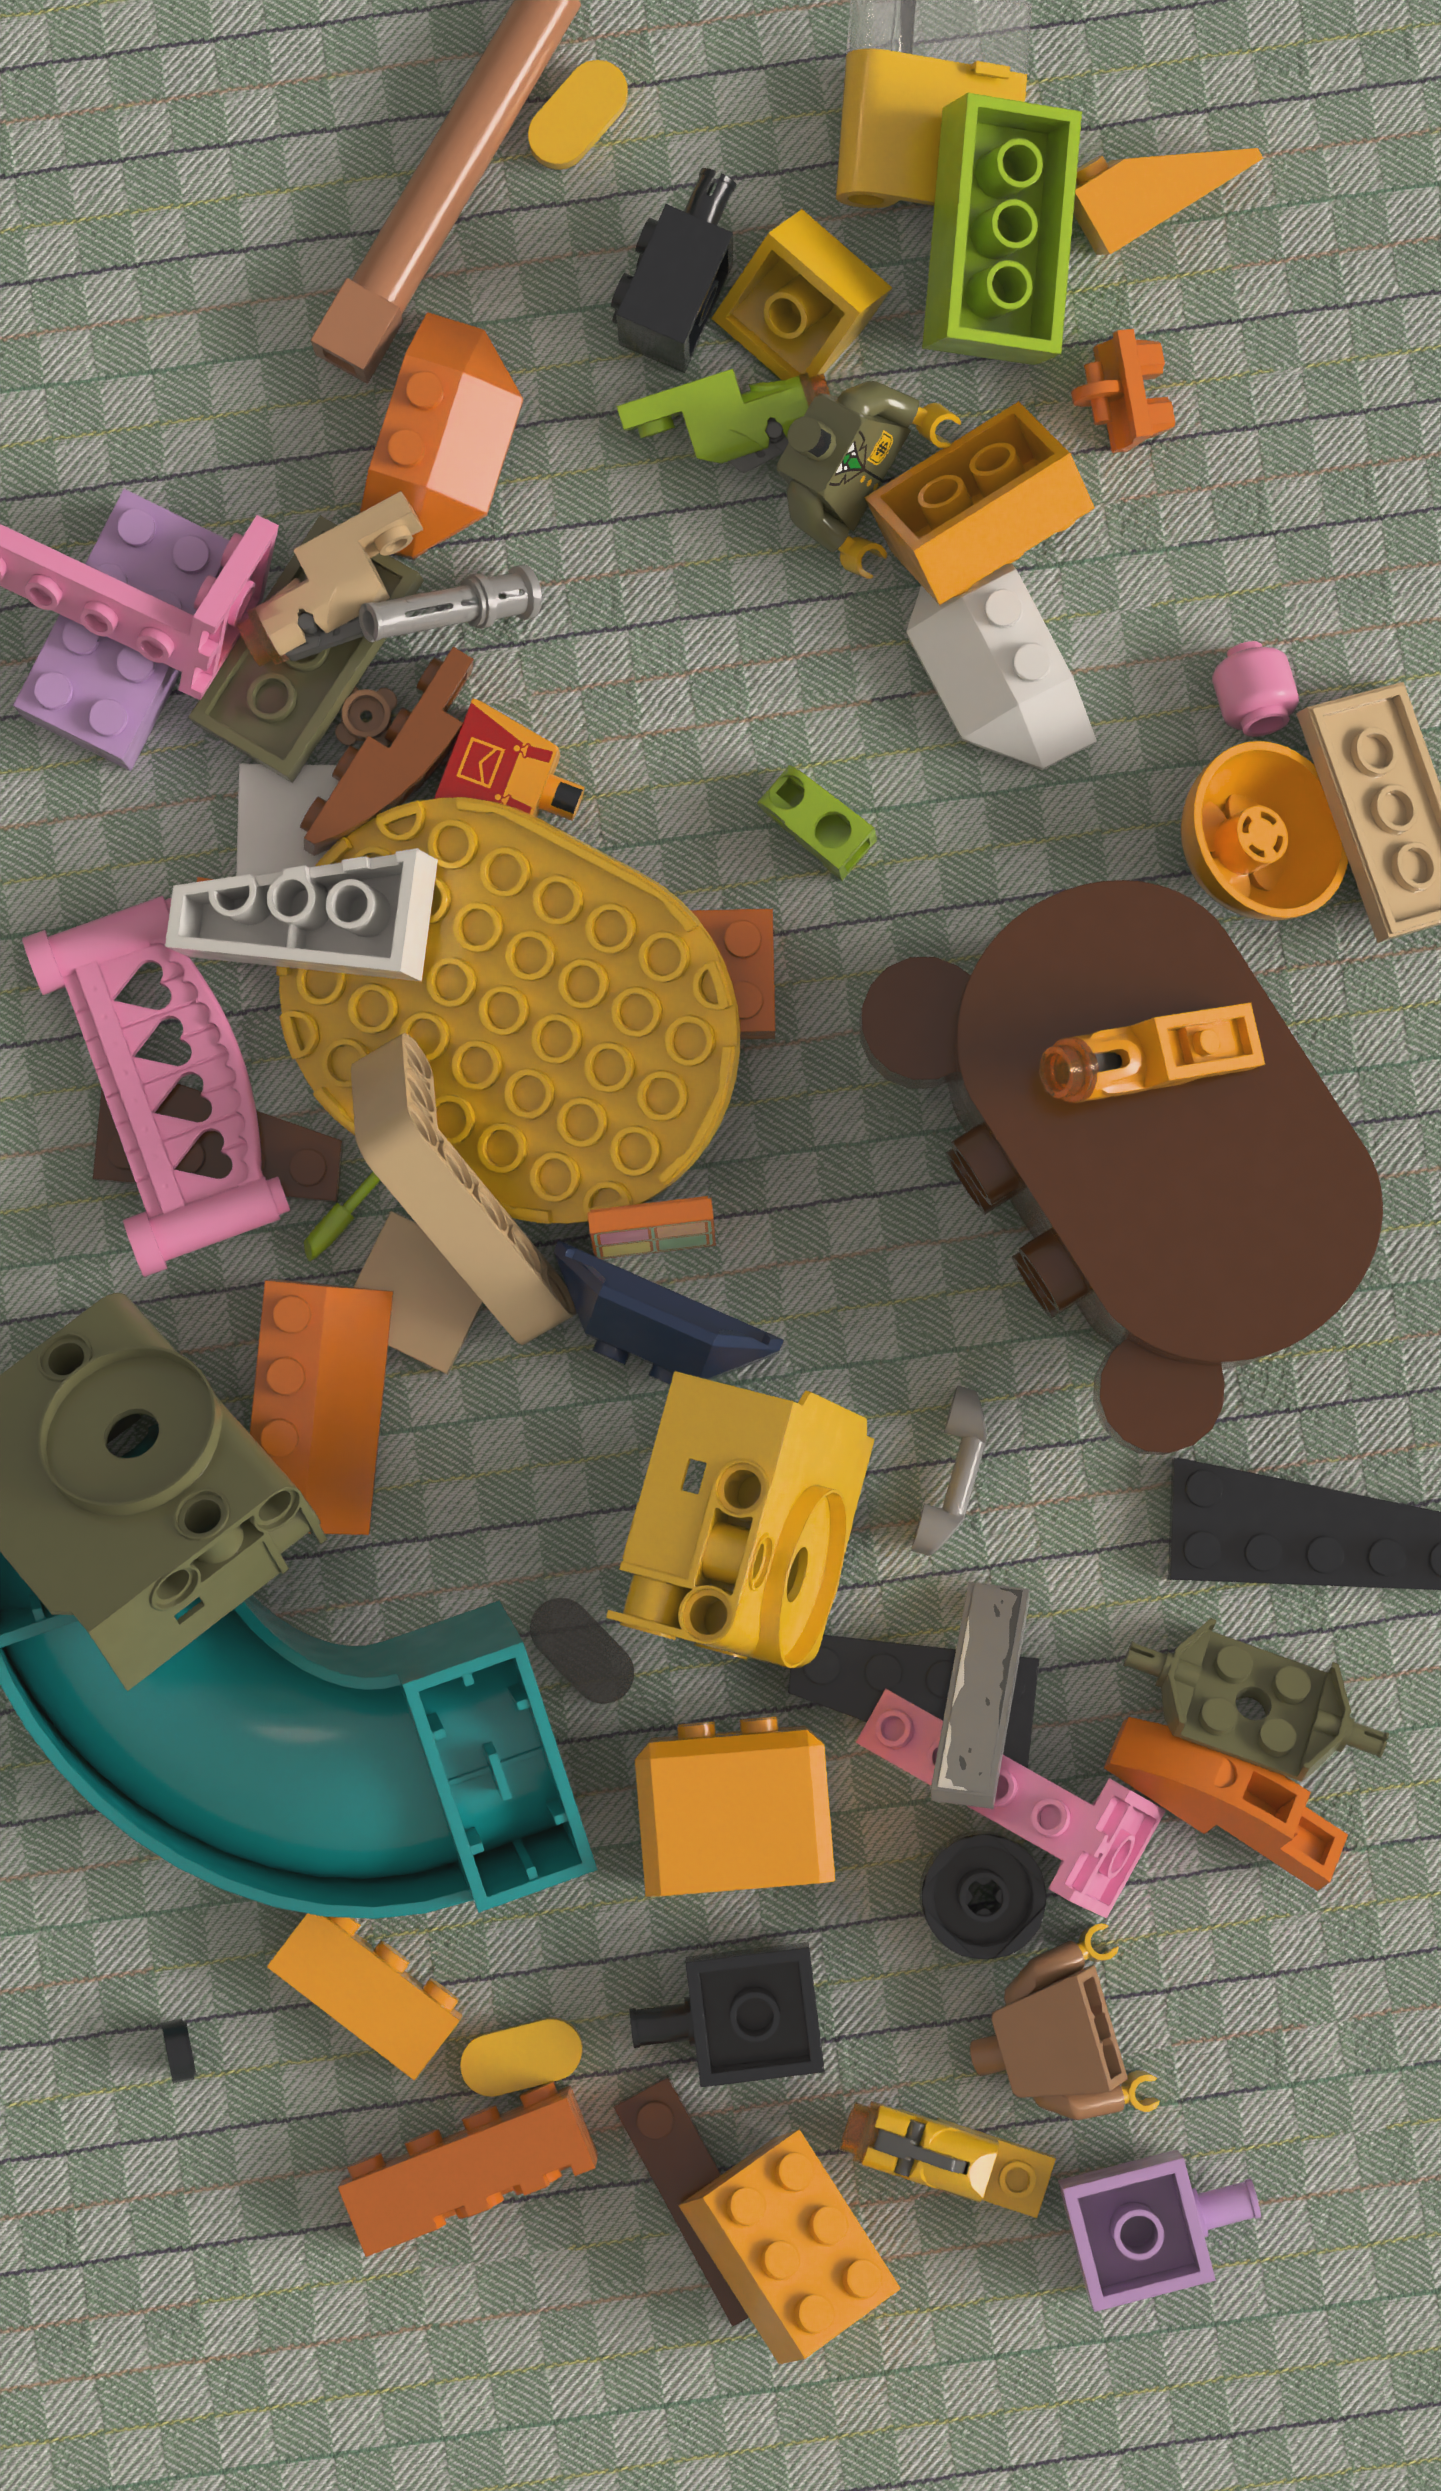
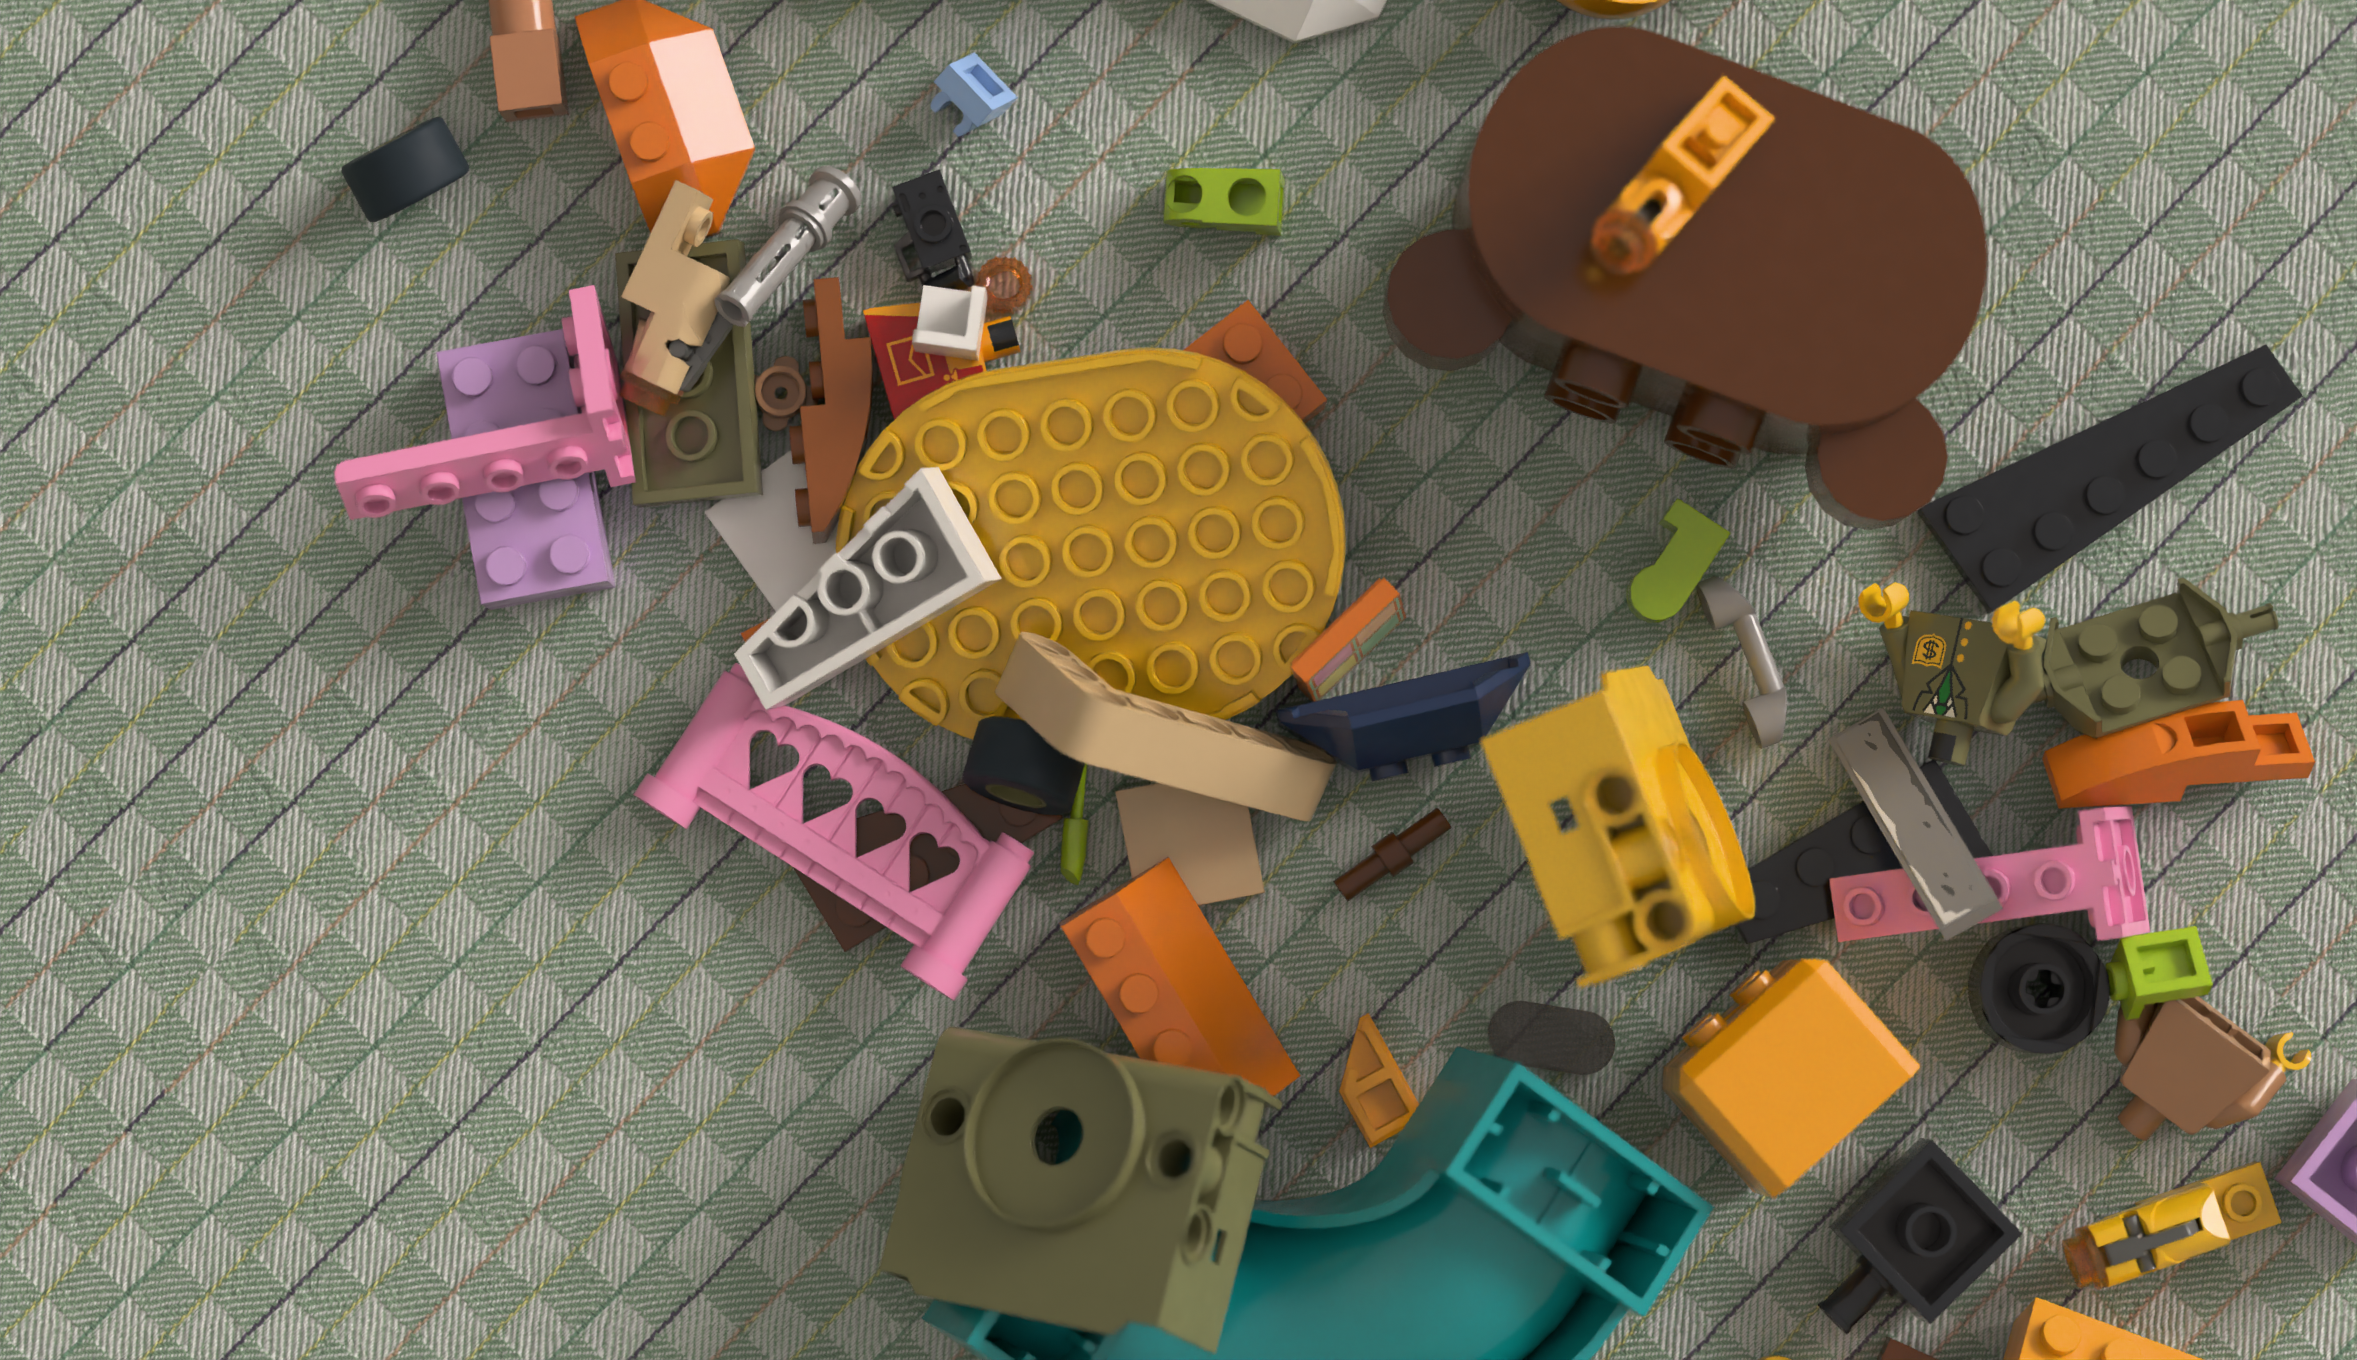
camera: 45 degrees left, 0 degrees up
(207, 332) = (405, 169): none -> black wheel
(322, 1136) = (1021, 768): none -> black wheel
(419, 1585) = (1375, 1086): none -> light orange tile
(531, 756) = (951, 322): none -> white panel
(566, 1418) = (1392, 854): none -> reddish brown bar
(574, 682) = (933, 233): none -> black piece
(599, 780) = (1000, 265): none -> clear orange axle
(687, 594) = (974, 91): none -> light blue tile
(930, 1369) = (1665, 586): none -> lime leg
(1082, 1948) = (2158, 969): none -> lime bracket
(1107, 1602) = (1960, 669): none -> olive torso

